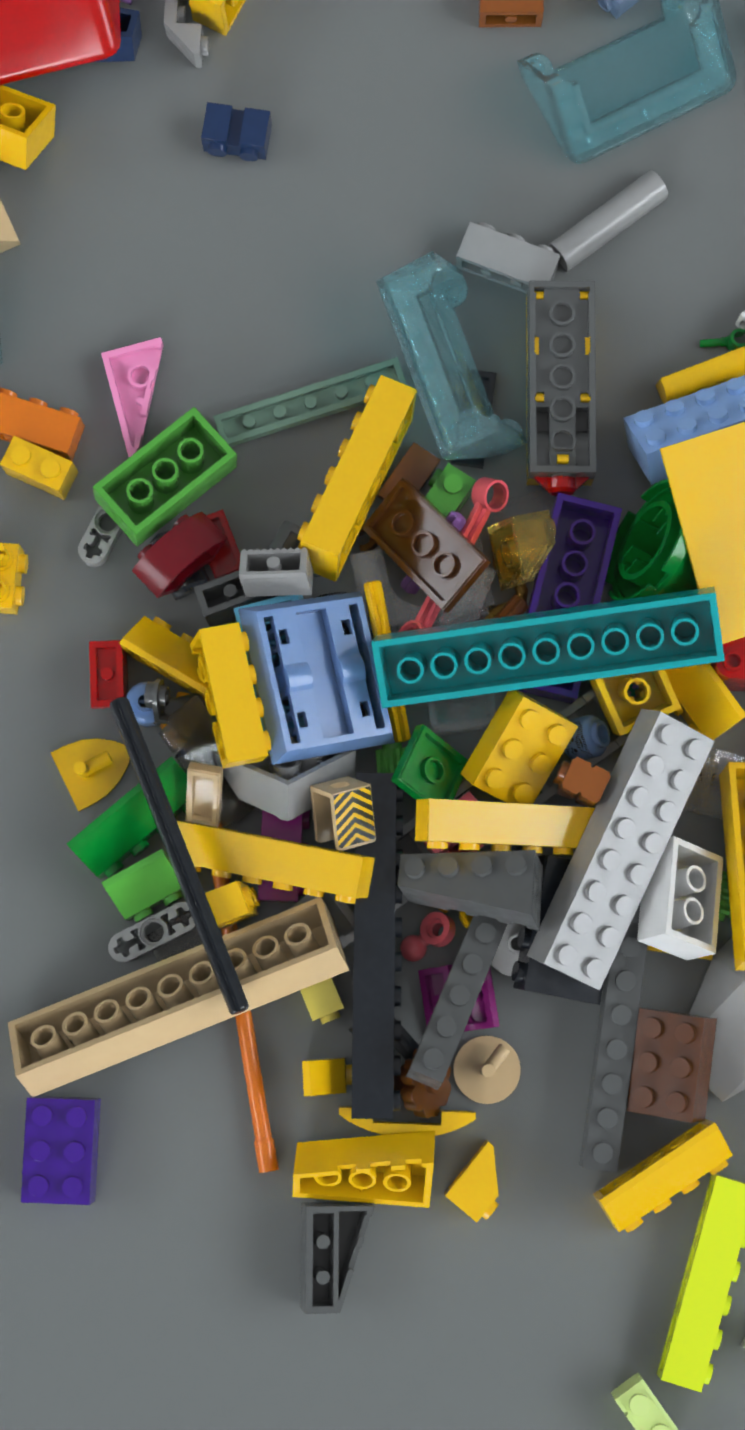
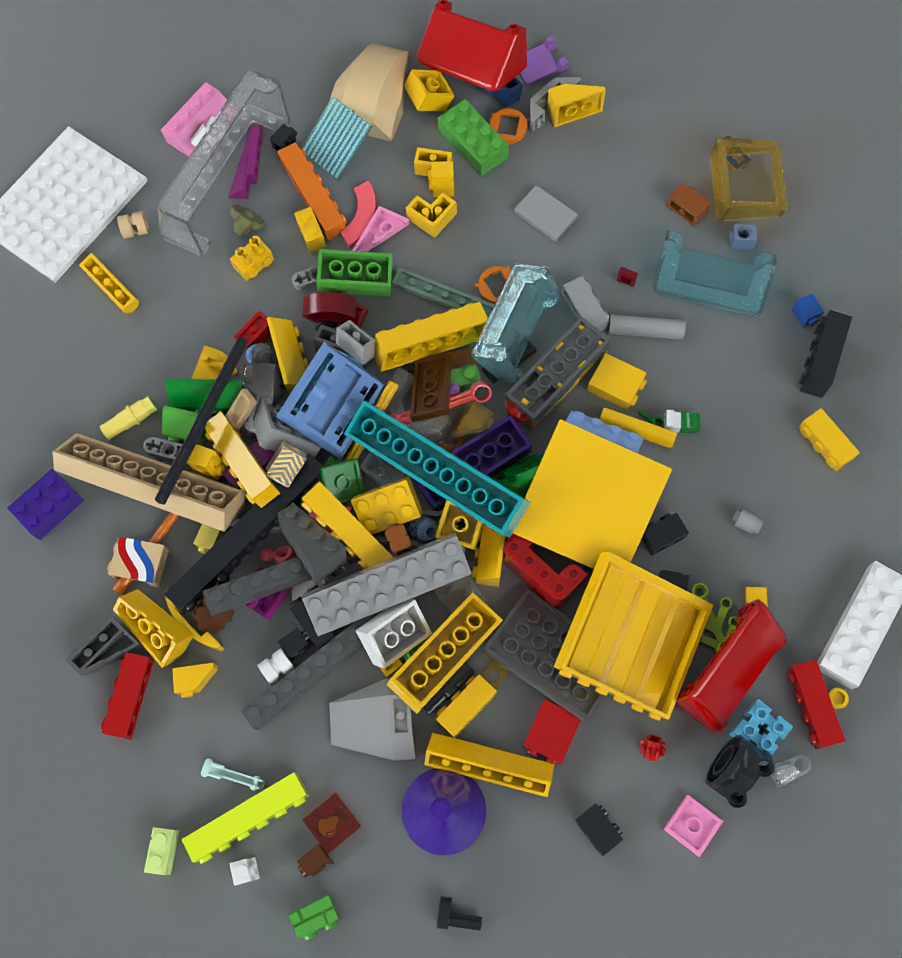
camera: 45 degrees right, 10 degrees down
(53, 939) = (128, 417): none -> light yellow piece
(90, 382) = (364, 213): none -> coral tile
(118, 228) = (424, 158): none -> yellow brick
(134, 144) = (473, 137): none -> bright green brick
(144, 100) = (522, 125): none -> orange piece
(155, 242) = (441, 178): none -> yellow brick
(191, 310) = (432, 217): none -> yellow brick
(231, 694) = (286, 372): yellow wedge -> none
(236, 132) = (520, 165): dark blue brick -> none
(258, 1109) = (138, 561): none -> panel
(326, 1076) = (171, 567): yellow slope -> none
(332, 172) = (545, 213): none -> light grey tile
(354, 350) = (484, 290): none -> orange piece
(418, 1281) = (127, 696): none -> red brick
(486, 1069) = (247, 635): tan shield -> none
(524, 172) = (627, 276): none -> dark red tile
(561, 1023) = (295, 643): none -> black brick
(568, 1073) = (276, 667): none -> white wheel
(622, 1260) = (219, 771): none -> light aqua piece
(641, 329) = (617, 382): none -> yellow brick
(663, 1175) = (271, 750): yellow slope -> none
(671, 1065) = (322, 704): reddish brown brick -> none

